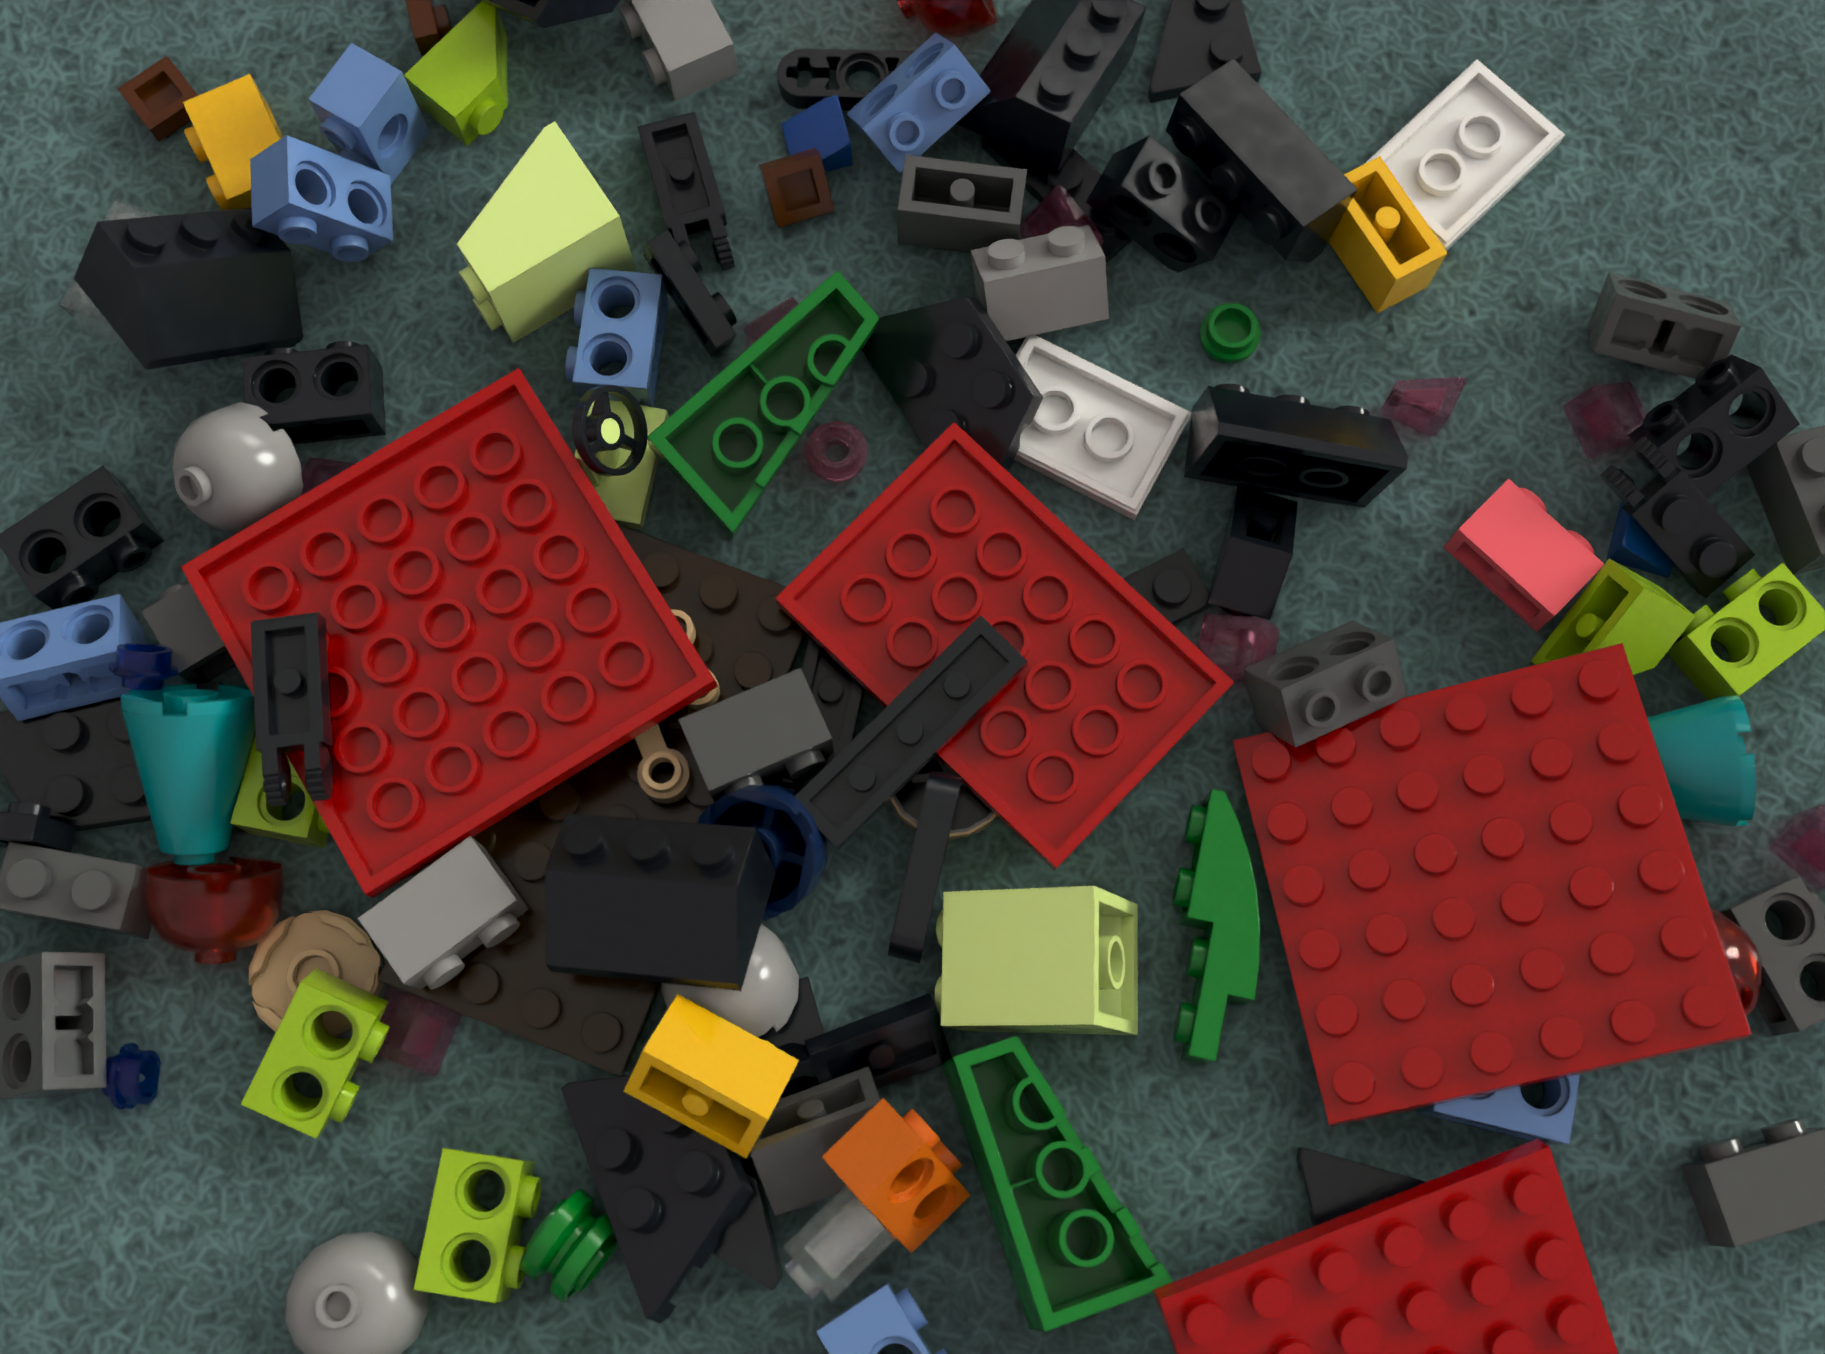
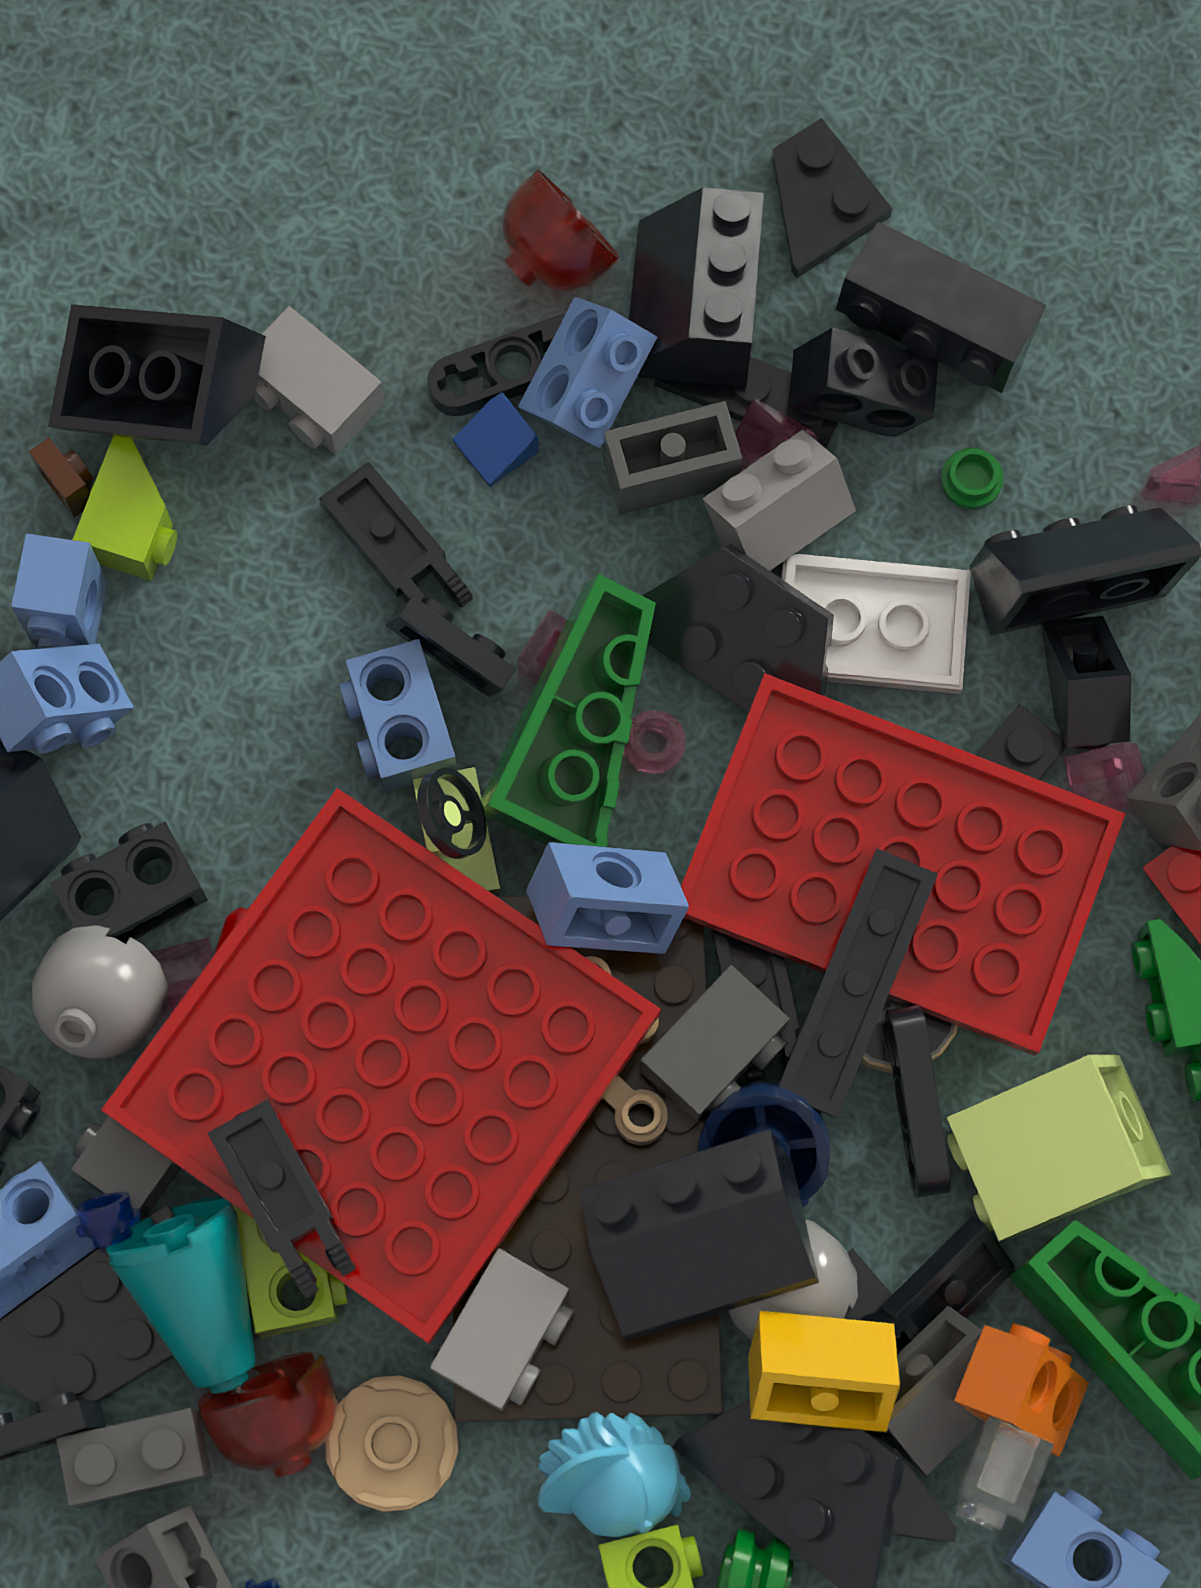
camera: 25 degrees left, 0 degrees up
(307, 1047) = (423, 1511): lime brick -> none
(417, 1032) = (504, 1455): clear pink slope -> none
(486, 1091) = (612, 1476): none -> medium azure hair
(540, 239) = (291, 649): yellowish green slope -> none
(714, 562) = (606, 898): none -> medium blue brick
(796, 187) = (501, 498): reddish brown plate -> none
(1385, 238) = (1081, 333): yellow brick -> none
(1467, 151) = (1111, 219): white tile -> none

